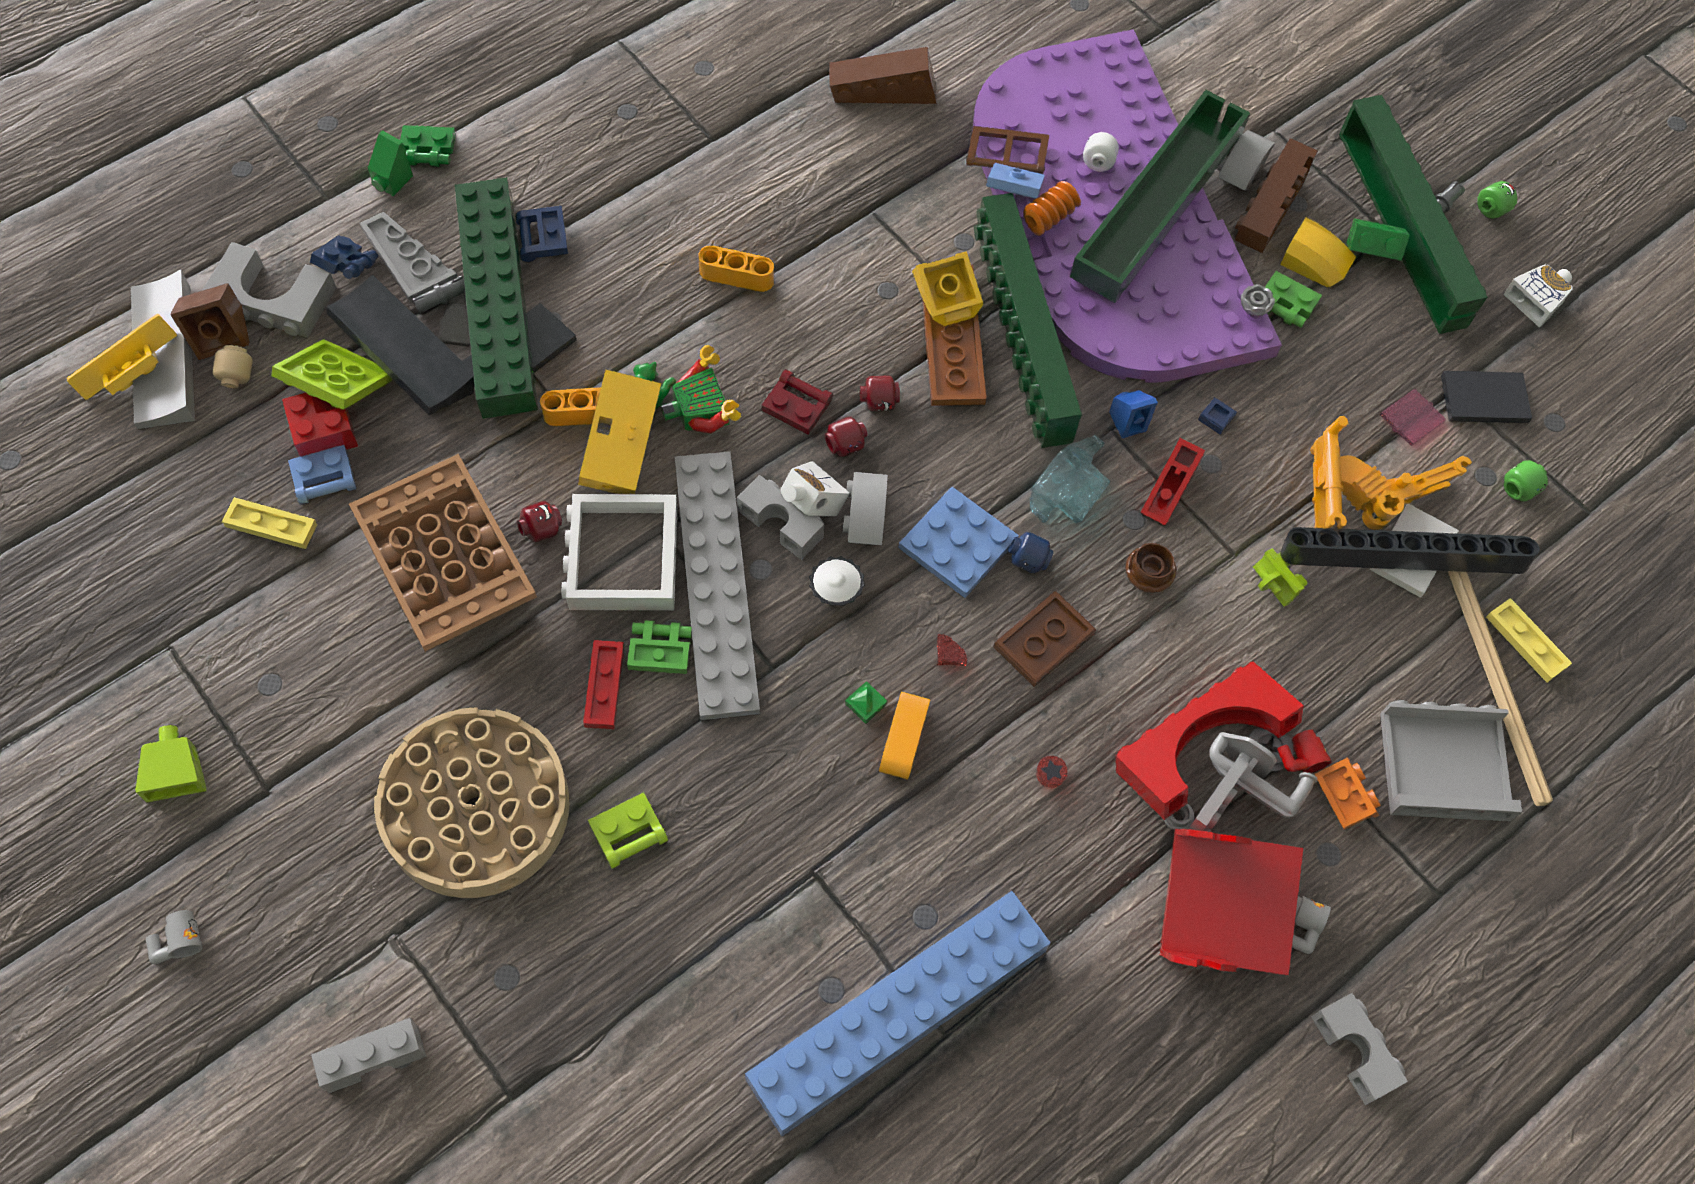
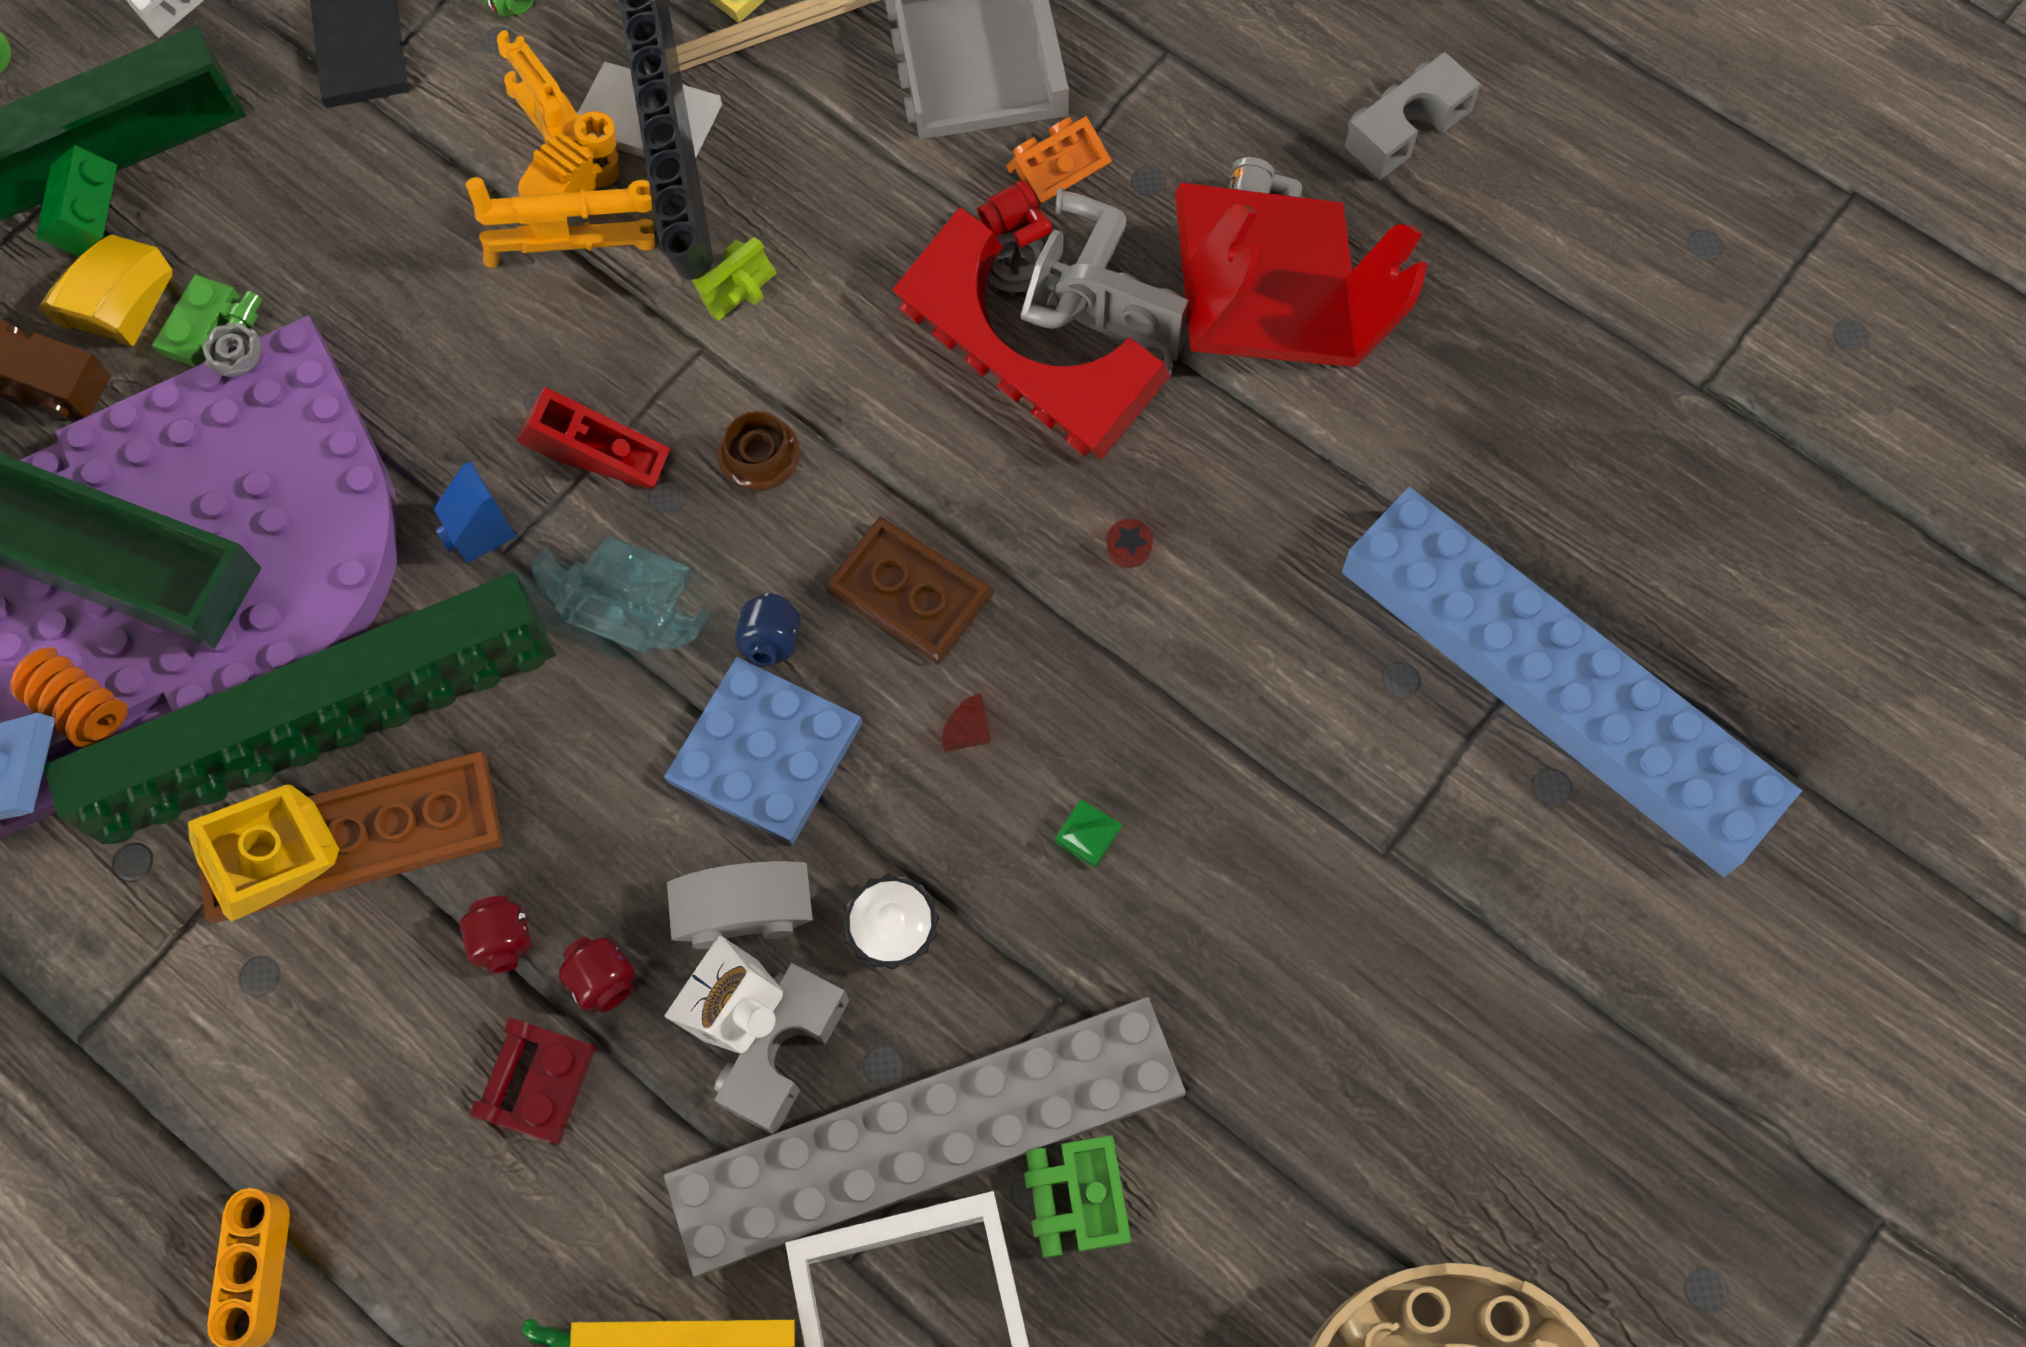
camera: 95 degrees left, 5 degrees up
(603, 684) = (1173, 1275): red plate -> none
(623, 822) = (1400, 1172): lime plate -> none
(700, 399) = (564, 1258): torso -> none
(904, 735) = (1132, 759): light orange beam -> none
(1217, 416) = (452, 400): dark blue tile -> none
(1412, 417) = (409, 137): clear pink piece -> none

